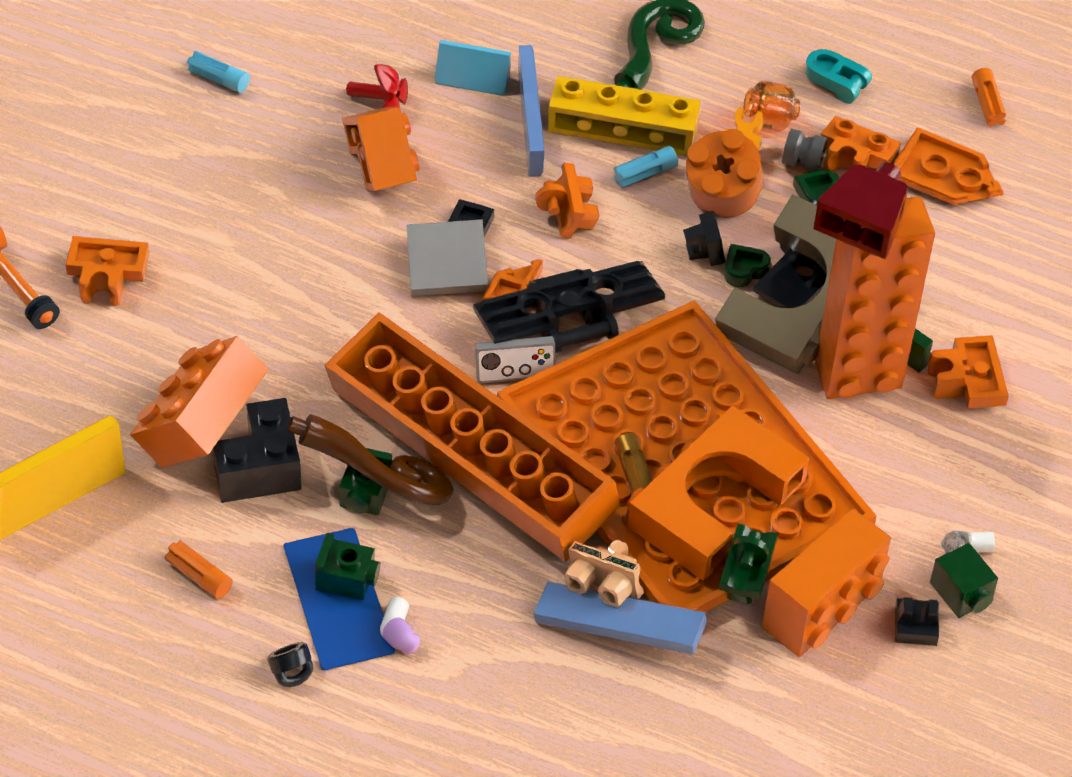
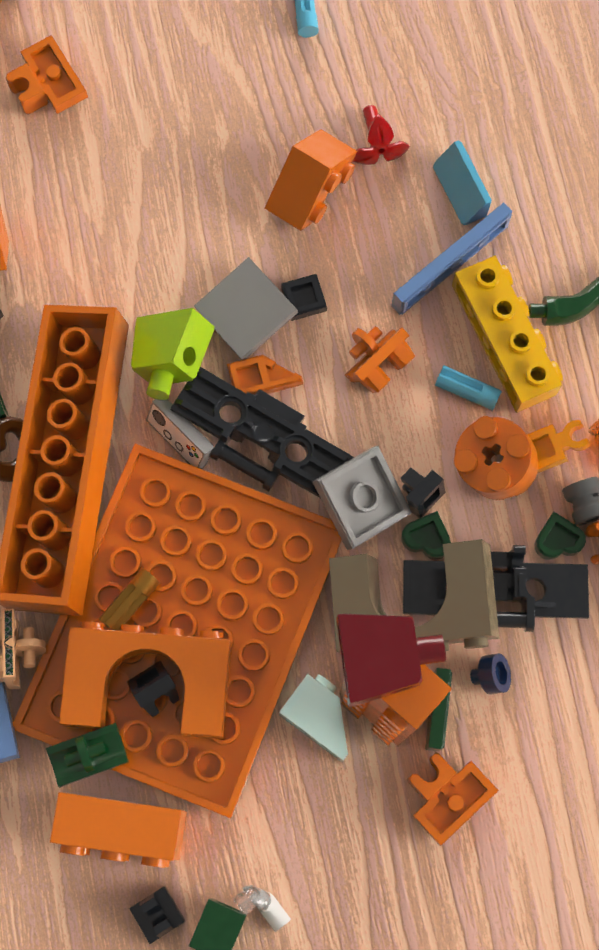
camera: 55 degrees right, 25 degrees up
(441, 311) = (169, 349): none -> lime torso
(681, 273) = (362, 497): none -> light grey tile
(724, 490) = (151, 685): none -> black tile
(840, 411) = (318, 714): none -> light aqua slope

